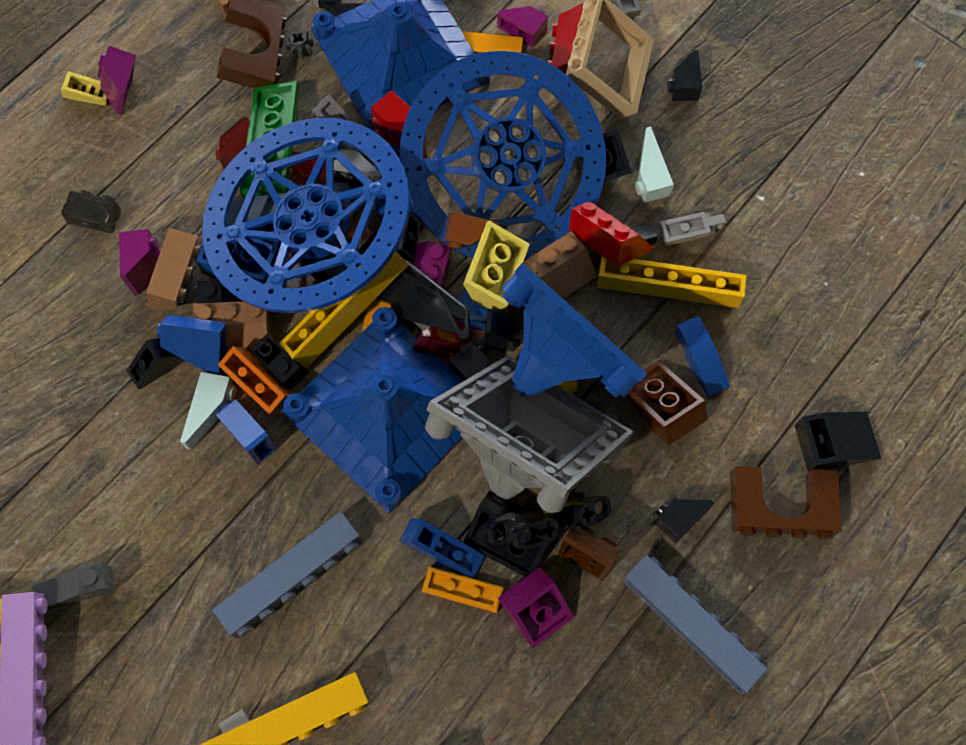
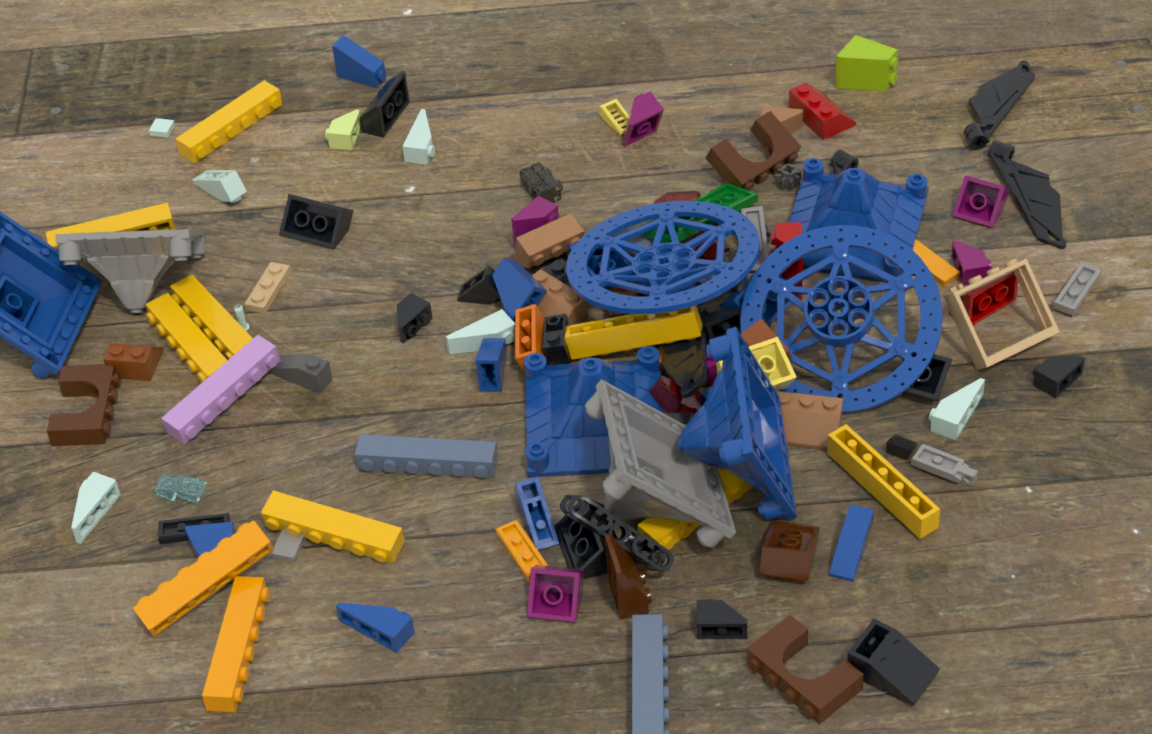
camera: 50 degrees right, 25 degrees down
(119, 441) = (412, 316): none -> black slope
(606, 234) = (866, 415): red slope -> none

